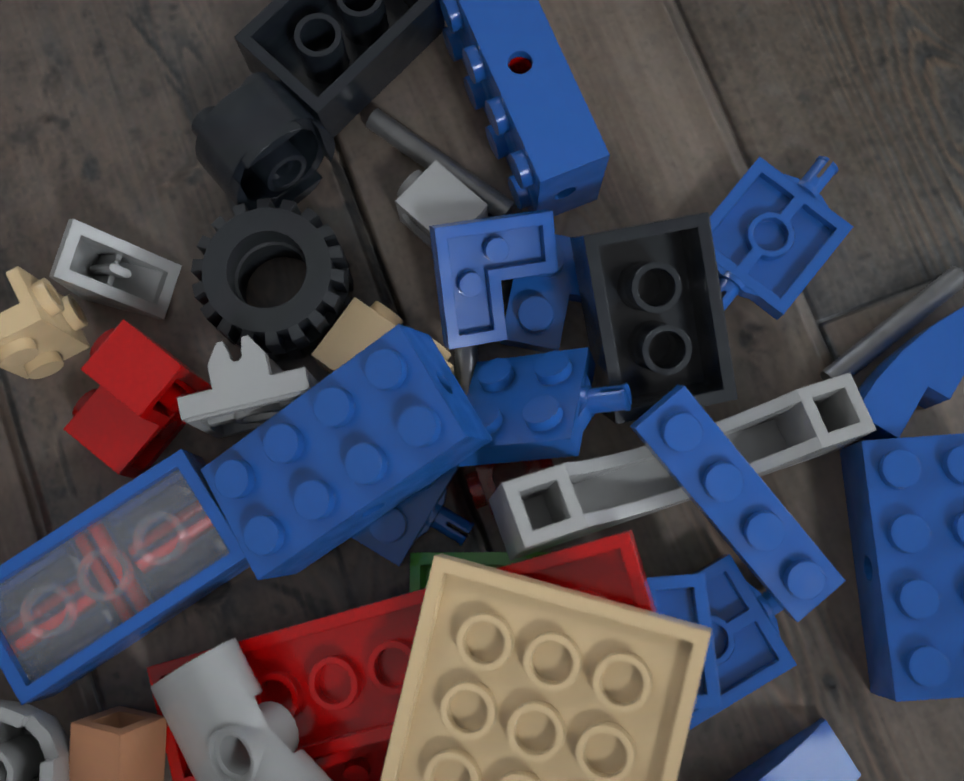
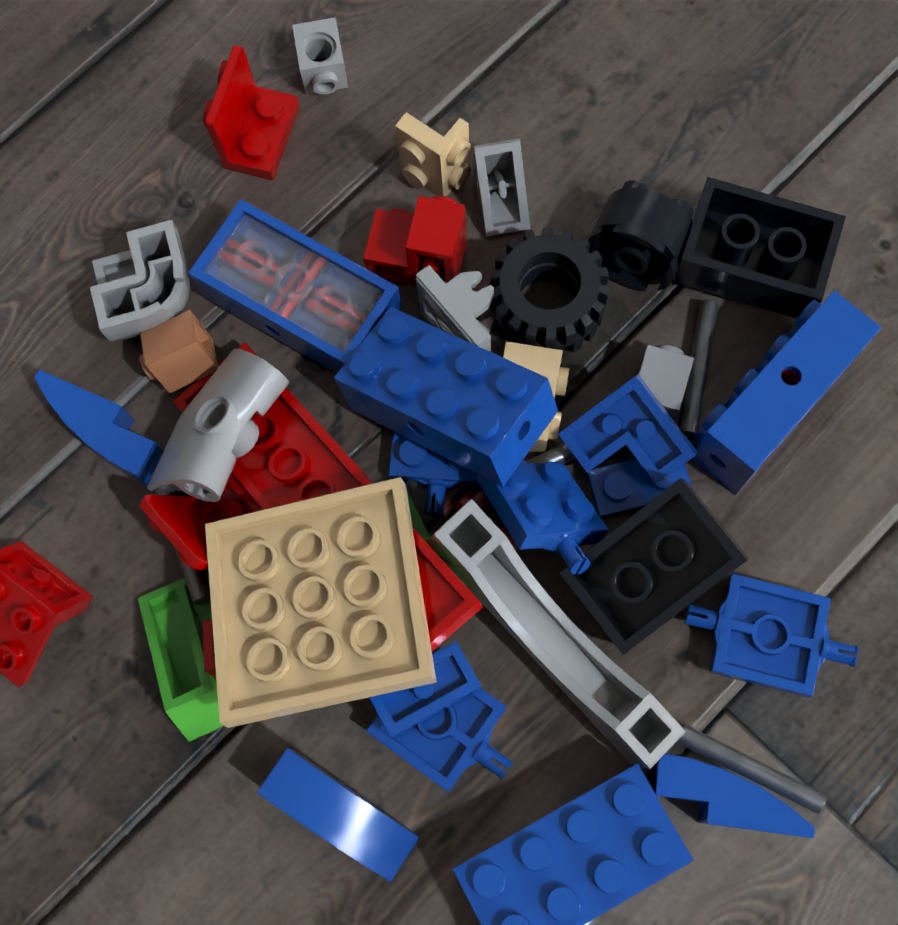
camera: 70 degrees right, 5 degrees down
(737, 502) = (543, 687): blue plate -> none

